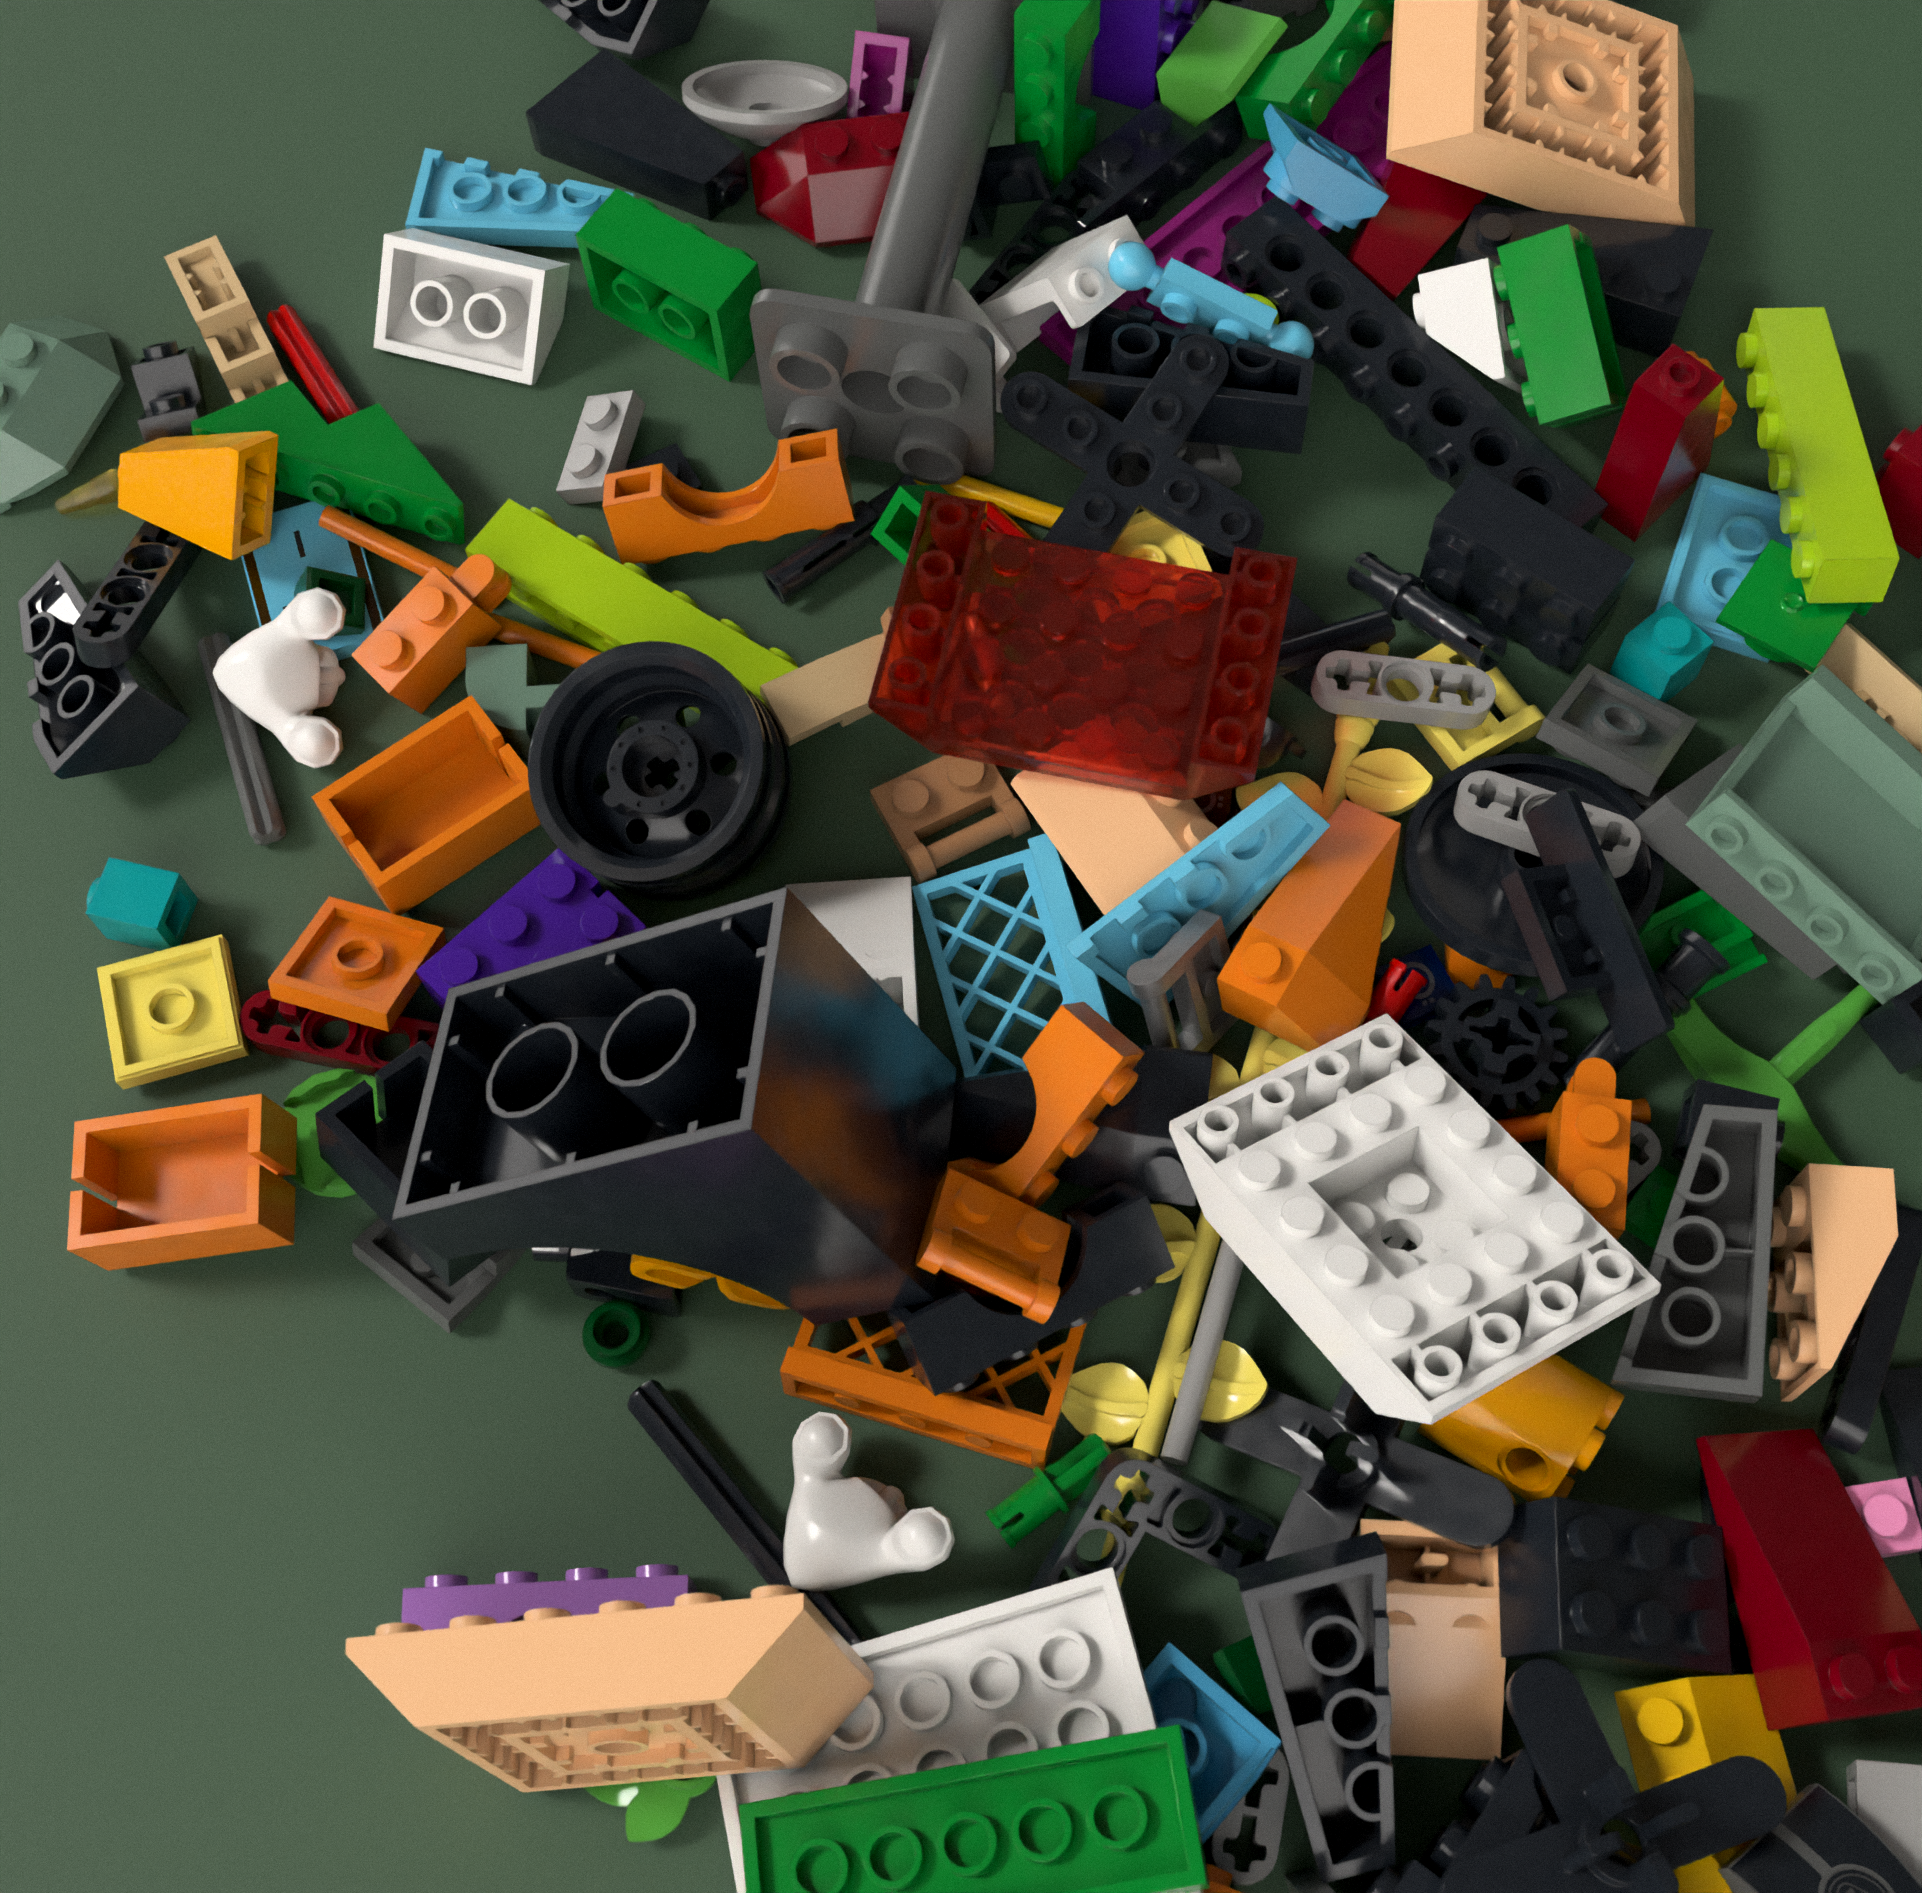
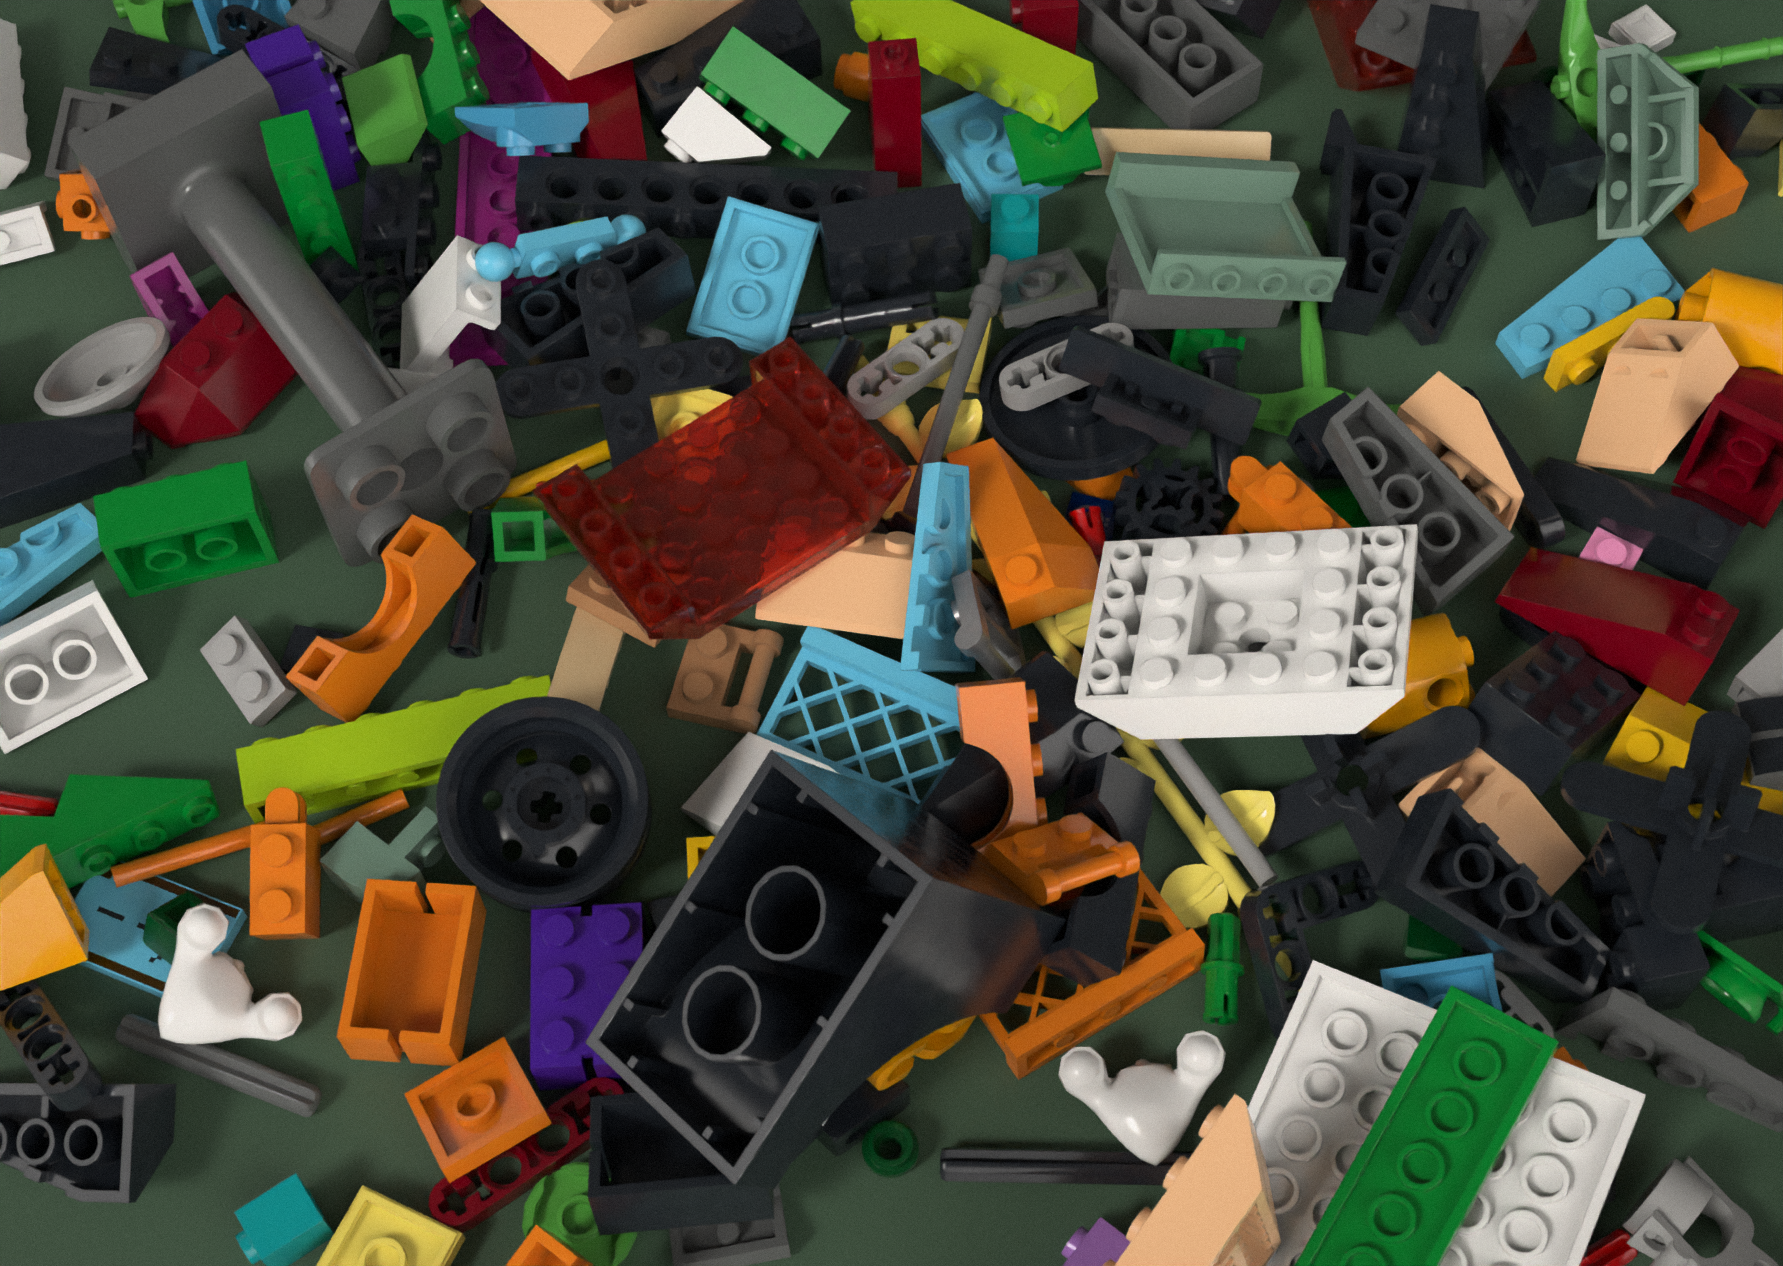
camera: 50 degrees left, 5 degrees down
(1364, 486) = (753, 277): none -> medium azure tile
(1535, 696) = (984, 305): none -> dark grey bar

